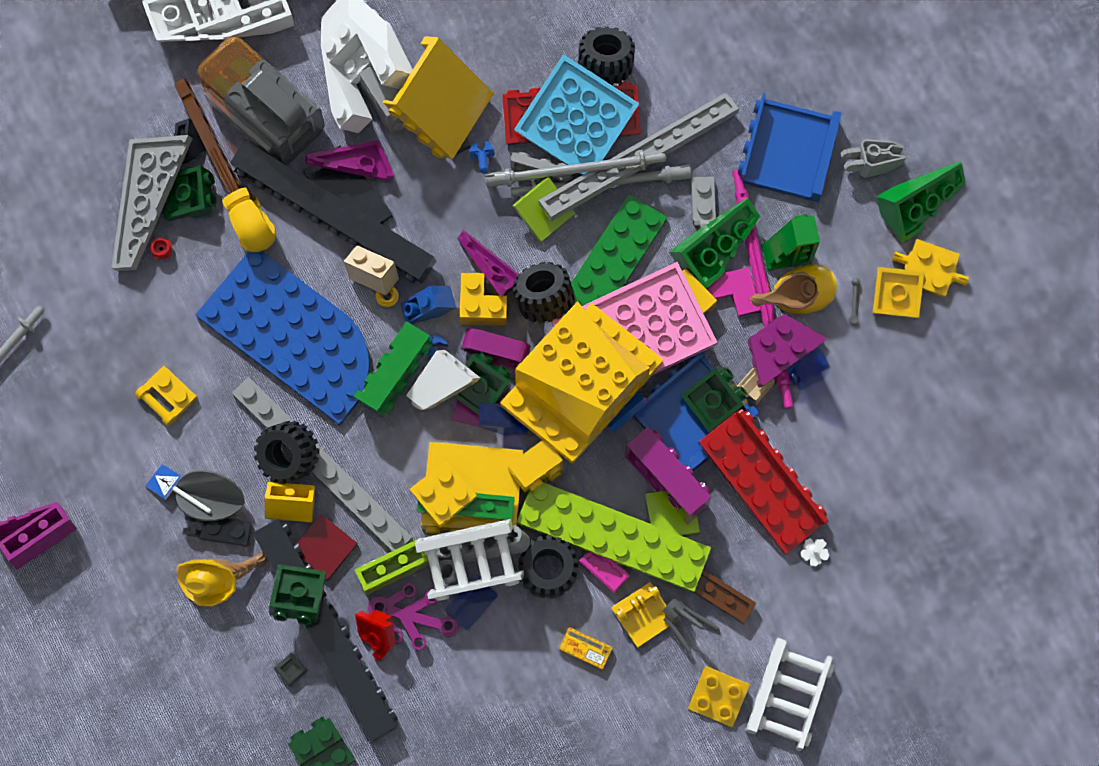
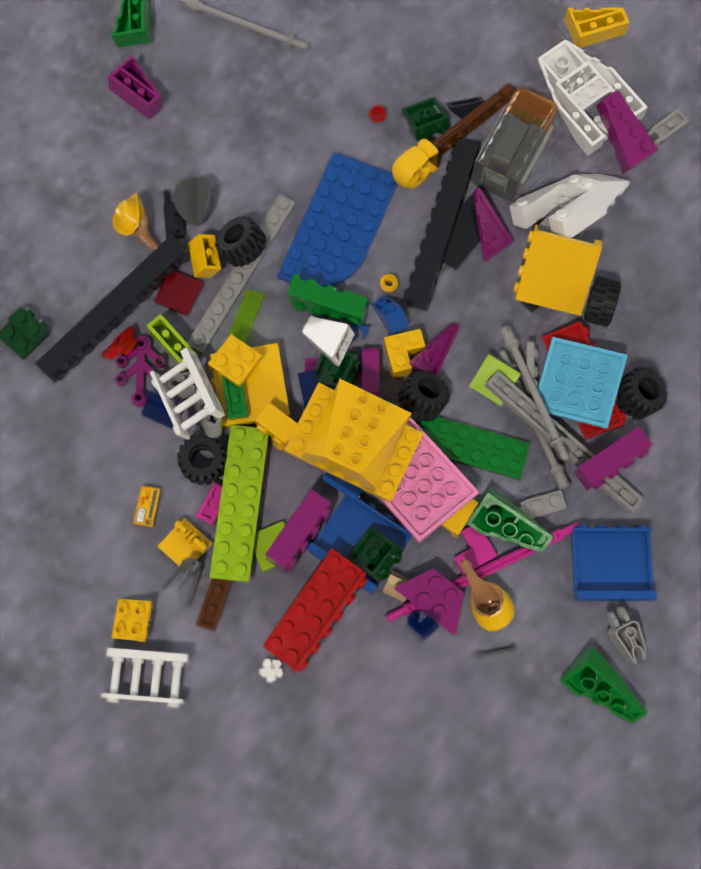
camera: 75 degrees right, 0 degrees up
(146, 185) = (430, 87): light grey wing -> none
(165, 481) = (199, 168): piece -> none
(171, 390) = (271, 152): yellow plate -> none
(290, 669) = (80, 295): pearl dark grey tile -> none
(297, 594) = (129, 276): dark green plate -> none
(371, 270) = (403, 263): tan brick -> none
(381, 474) = (246, 315): none -> clear neon green plate
(482, 155) = (525, 321): blue bar -> none
(489, 61) = (602, 301): none -> black tyre
(677, 107) = (613, 458): none -> magenta wedge
(793, 244) = (525, 584): green wedge -> none
(898, 292) = (512, 685): yellow plate -> none
(937, 265) = (544, 710): yellow plate -> none

